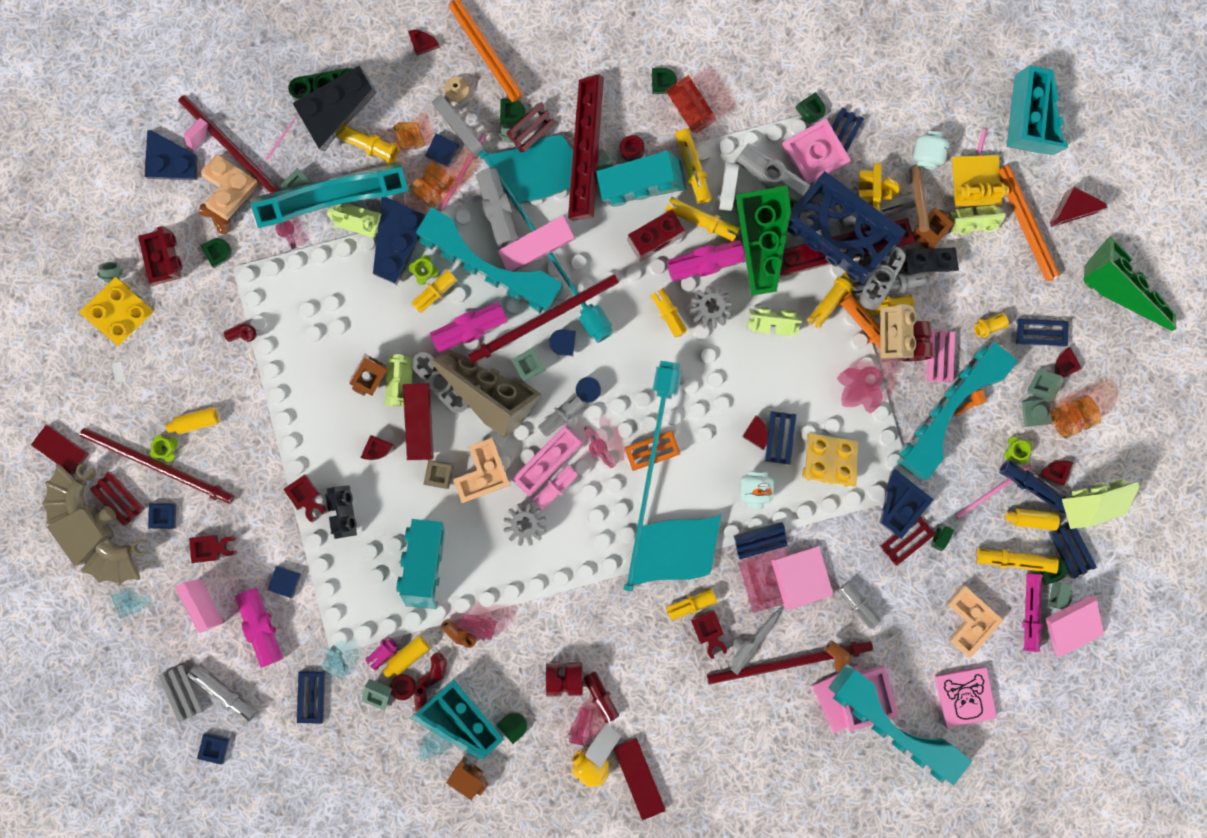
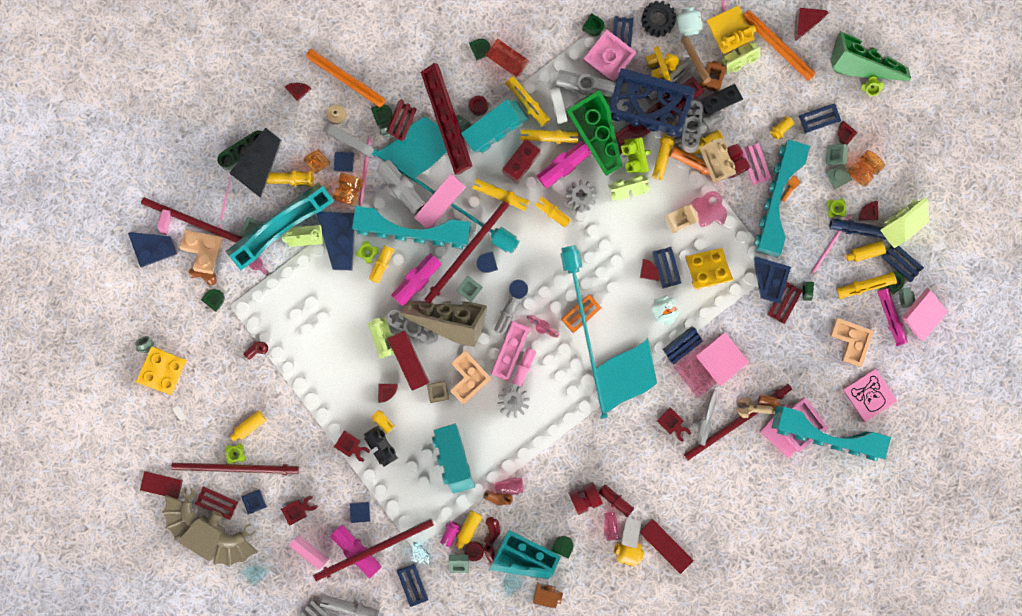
camera: 20 degrees left, 0 degrees up
(160, 256) = (175, 319): dark red bracket -> none
(210, 638) = (327, 572): none -> dark red bar
(356, 482) = (384, 423): none -> yellow pin
(369, 385) = (363, 349): dark orange brick -> none
(613, 265) = (500, 194): none -> yellow pin
(691, 604) = (652, 409): yellow axle -> none
(799, 285) = (636, 155): none -> lime hips
(813, 653) = (750, 407): none -> tan bar
(823, 384) = (681, 218): none -> tan bracket
(859, 605) = (770, 362): light grey axle -> none
(901, 119) = (666, 10): none -> black tyre
(1126, 325) = (876, 89): none -> lime plate

